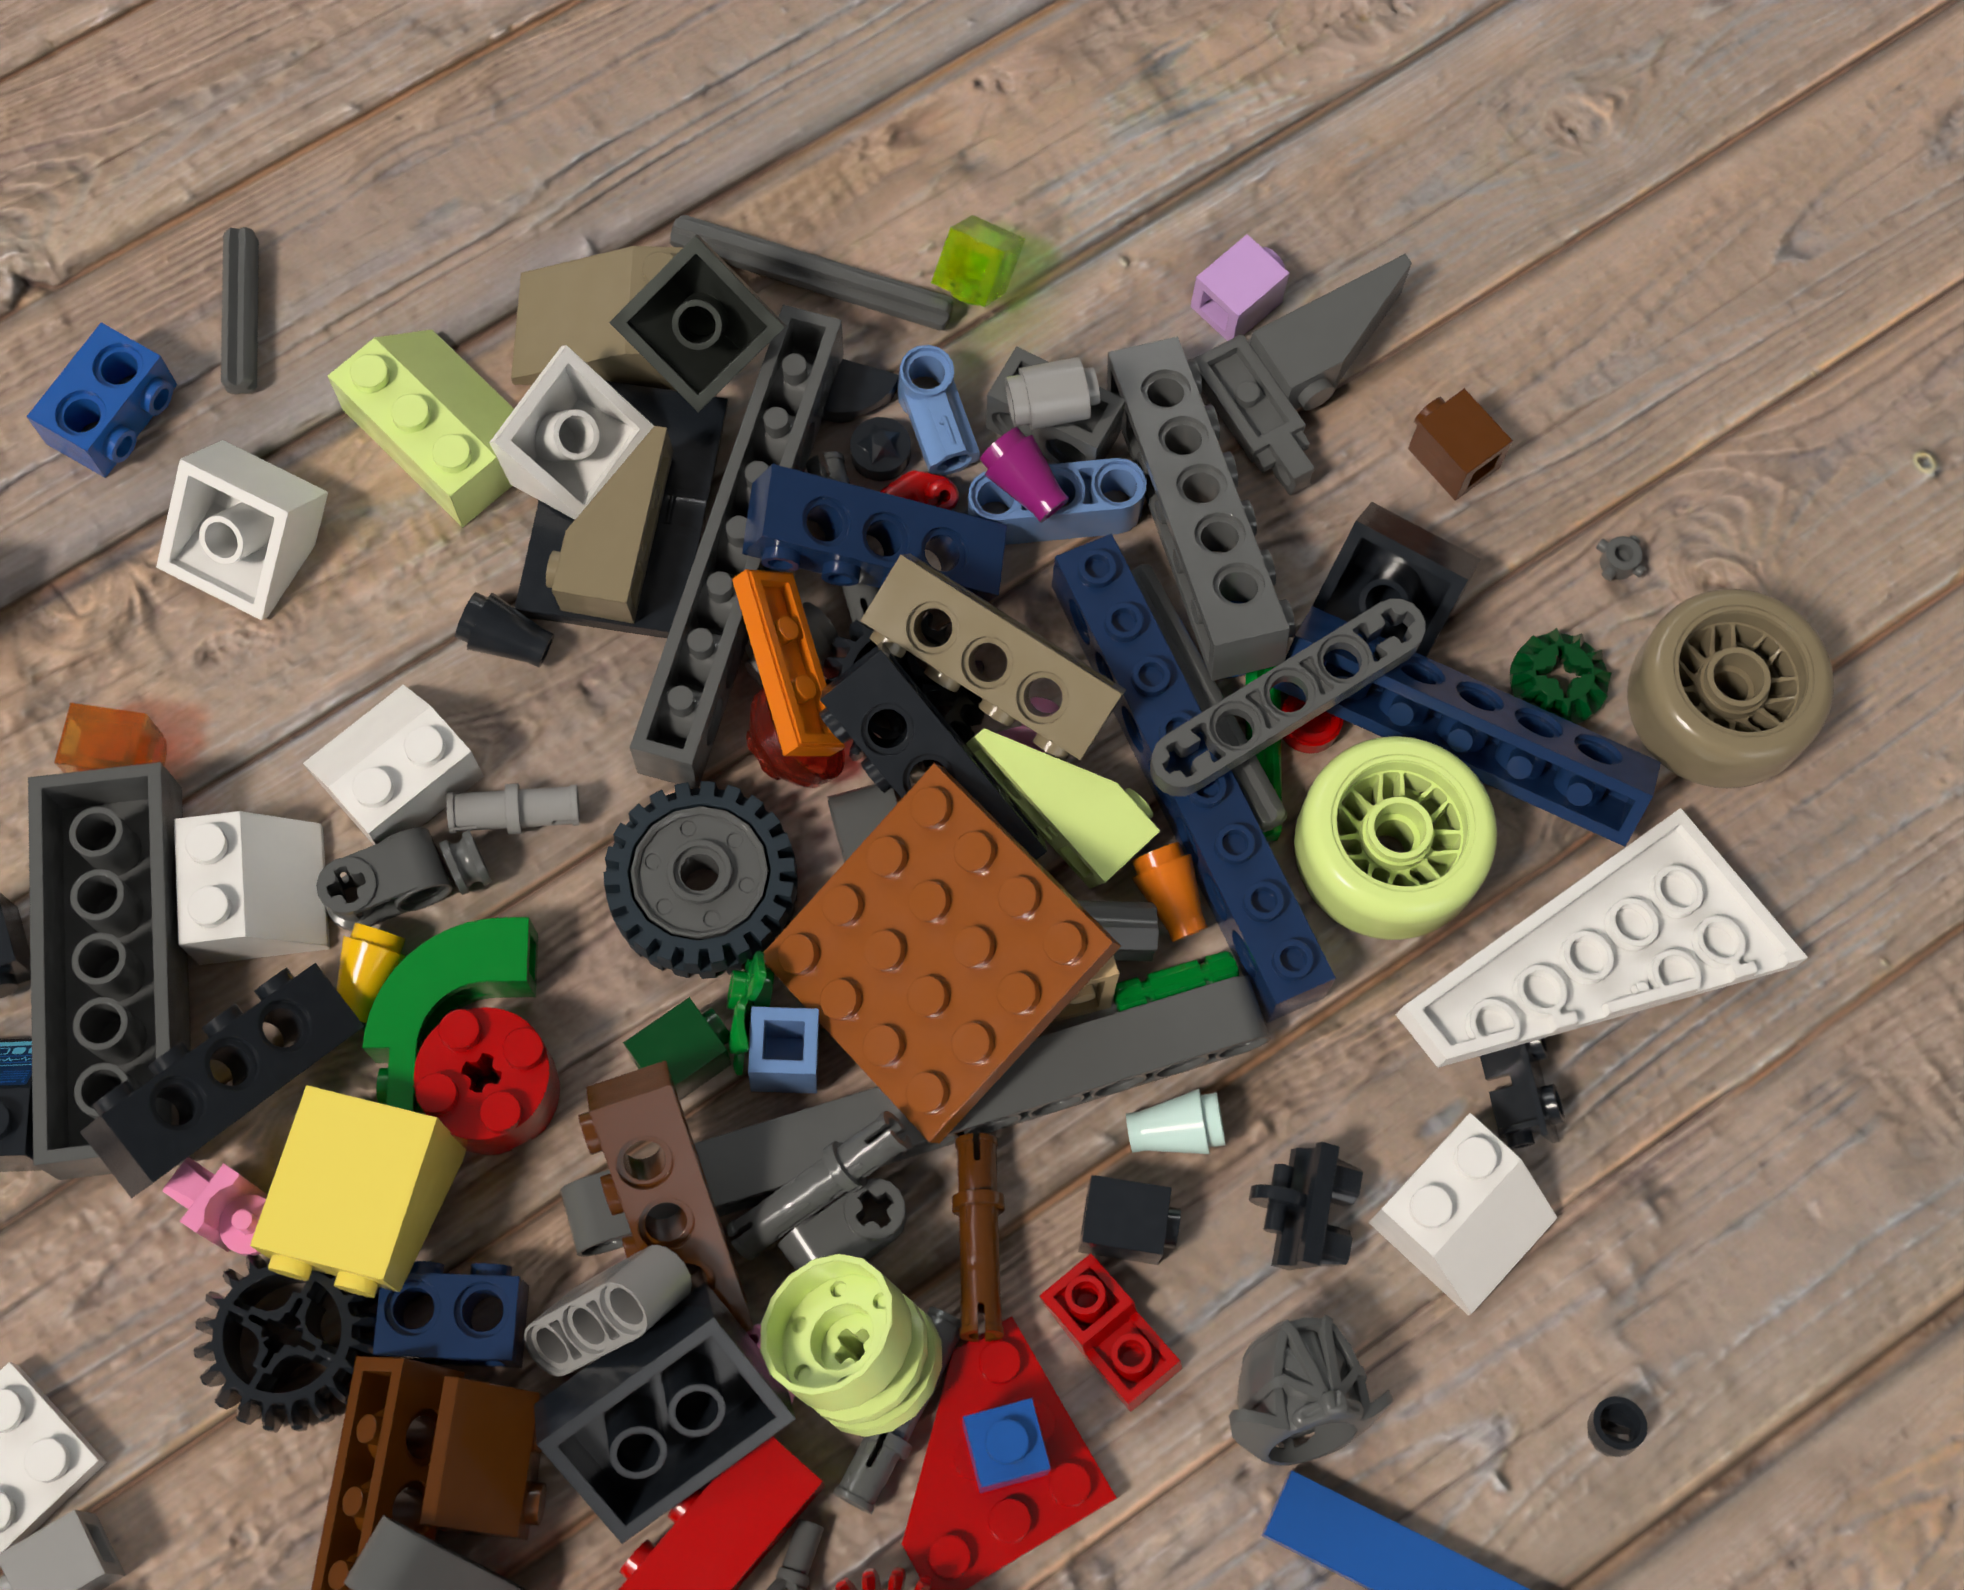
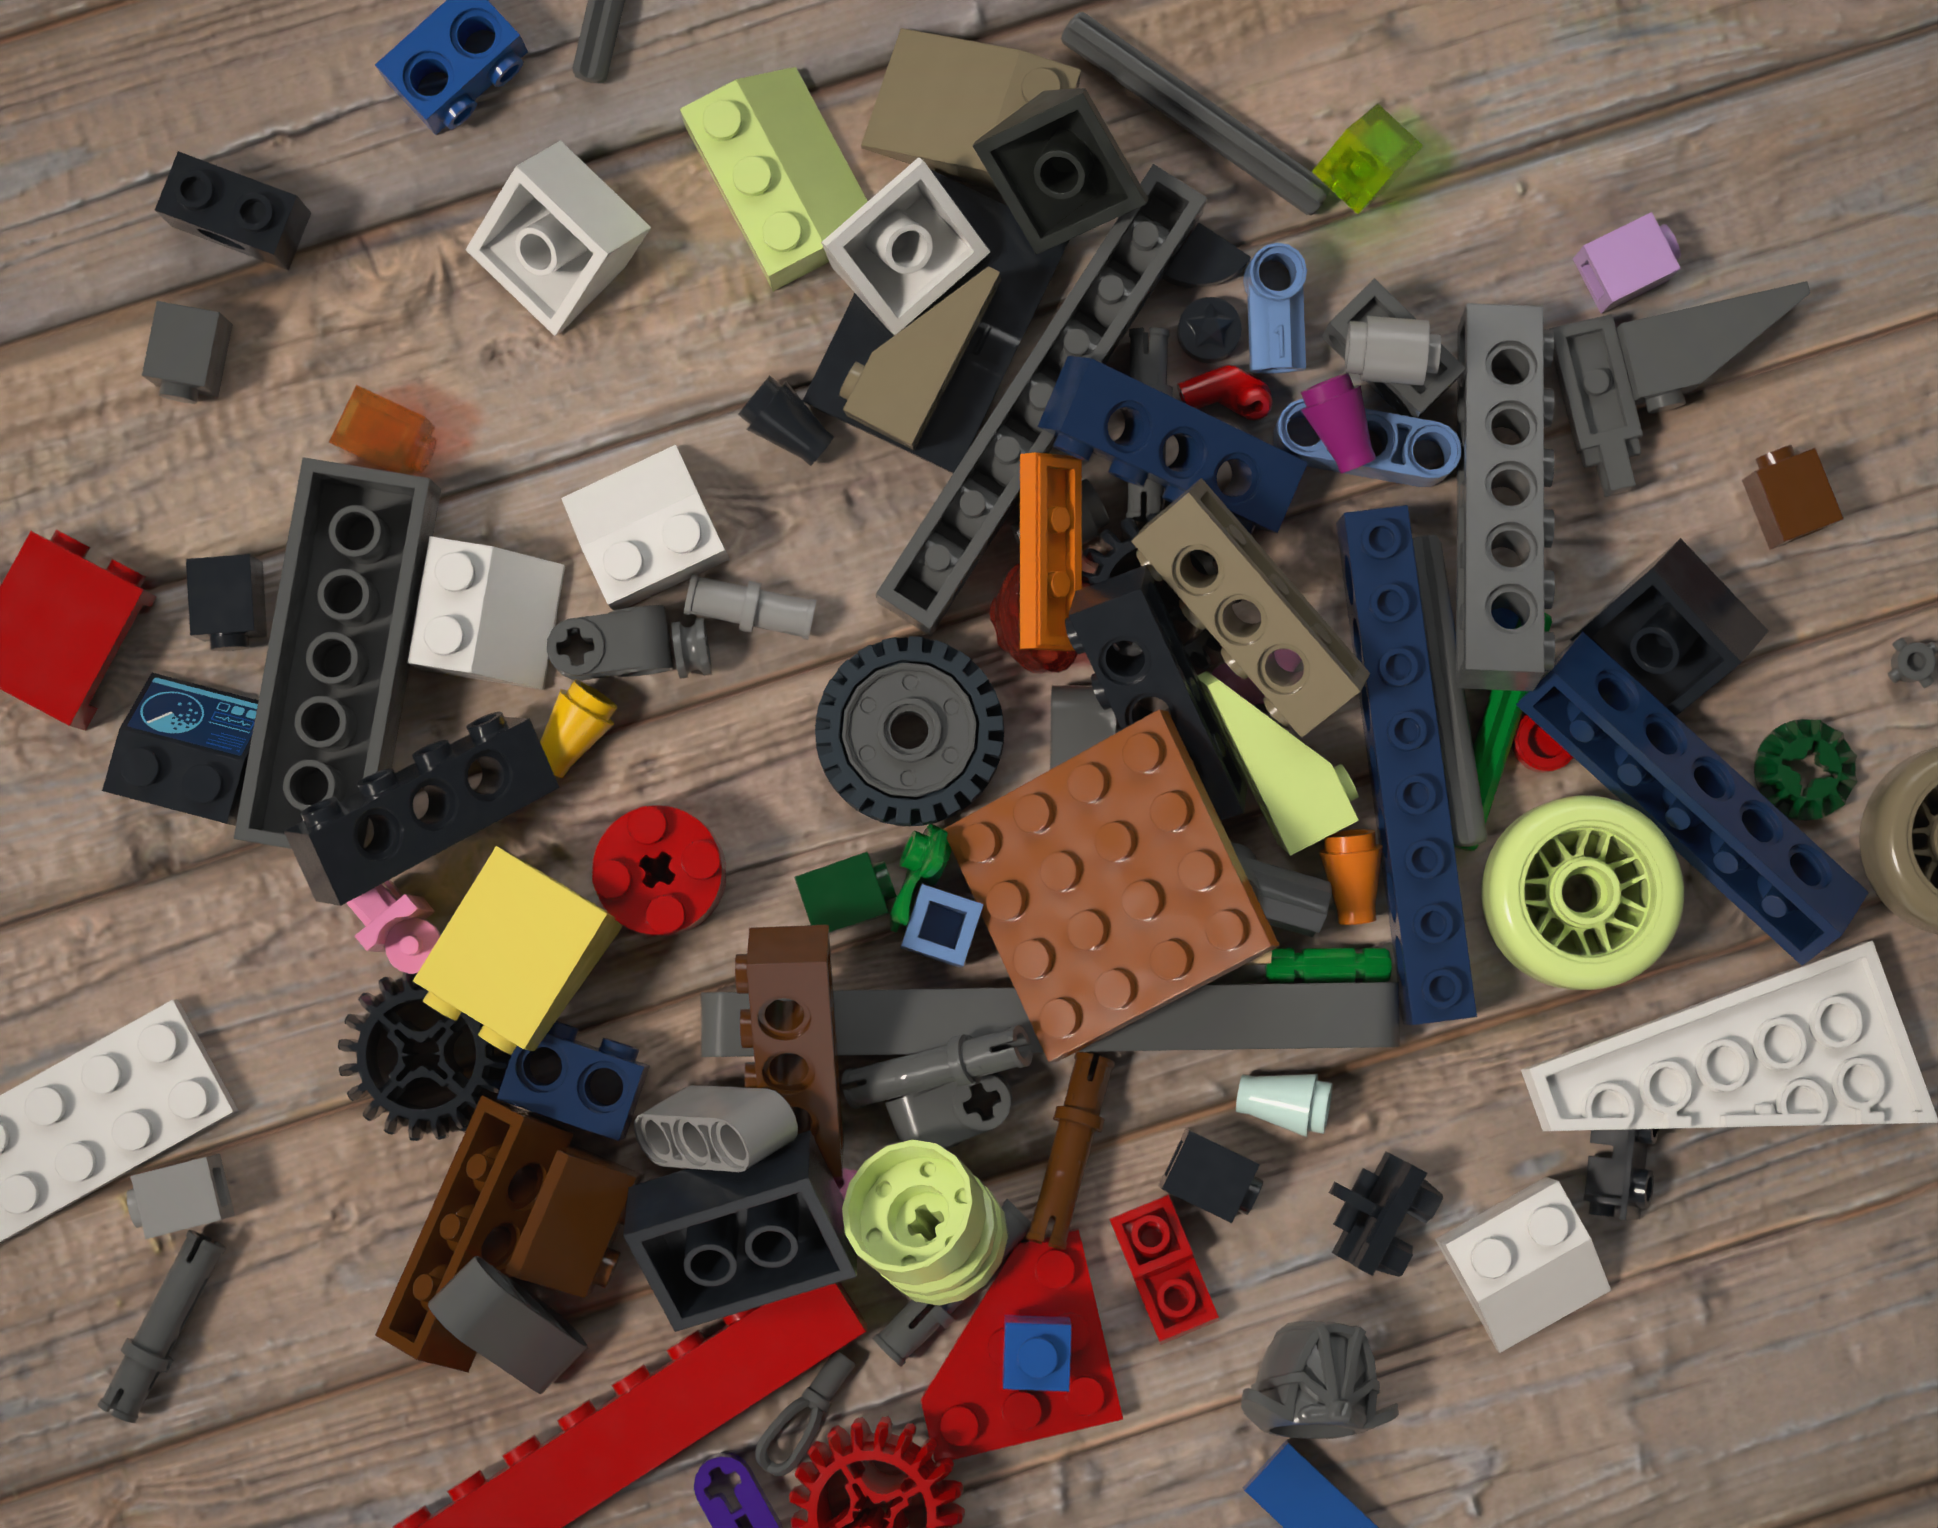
camera: 20 degrees right, 15 degrees up
(438, 977) = (632, 759): green arch -> none
(1302, 669) = (1550, 717): dark grey beam -> none
(1621, 1417) = (1603, 1486): black hinge -> none

